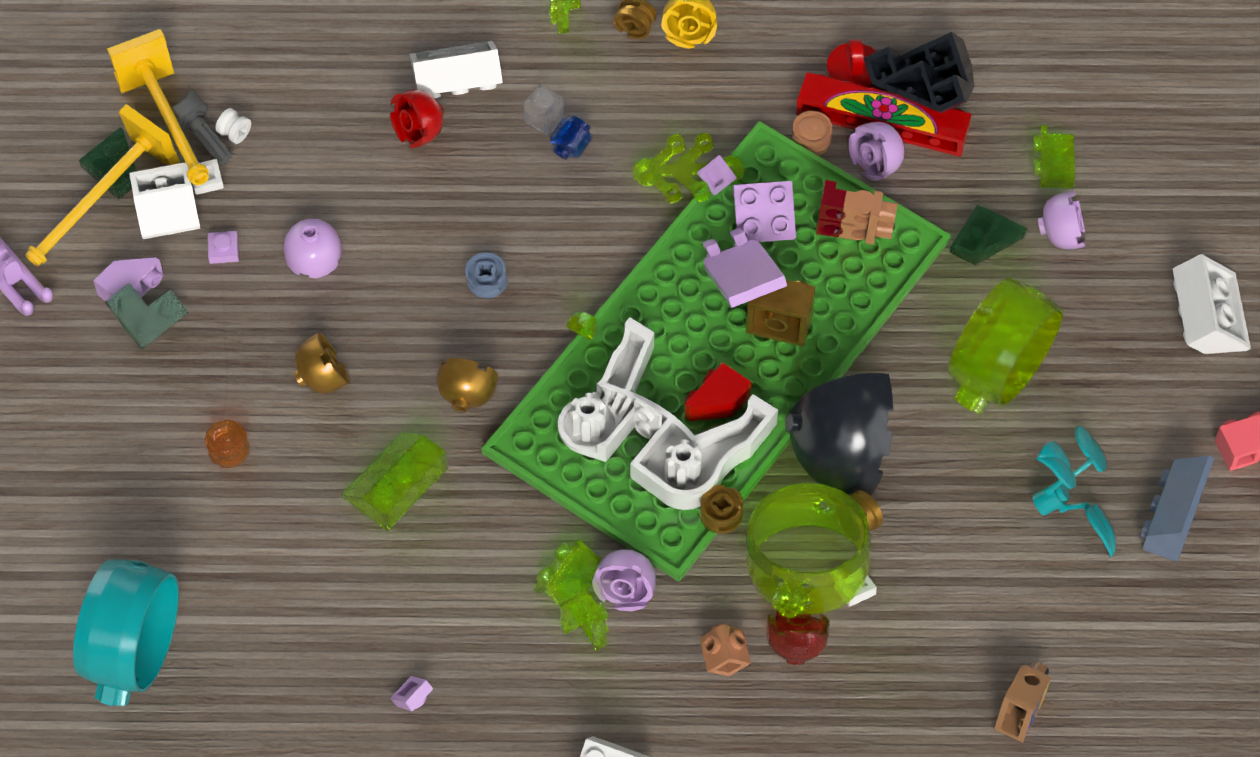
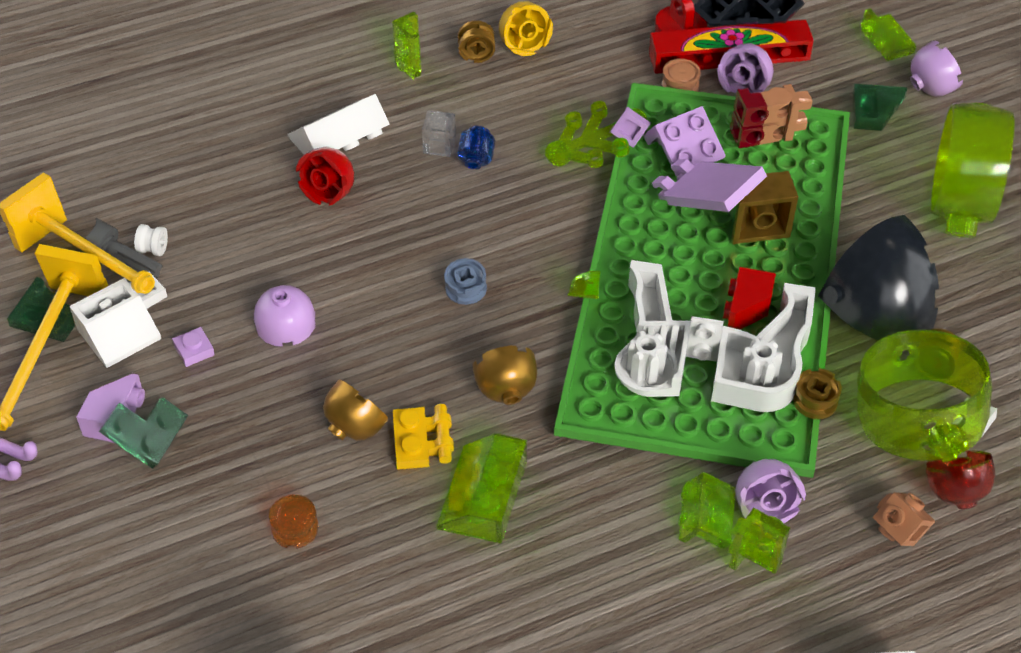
camera: 25 degrees left, 10 degrees down
(362, 406) = (411, 436): none -> yellow plate

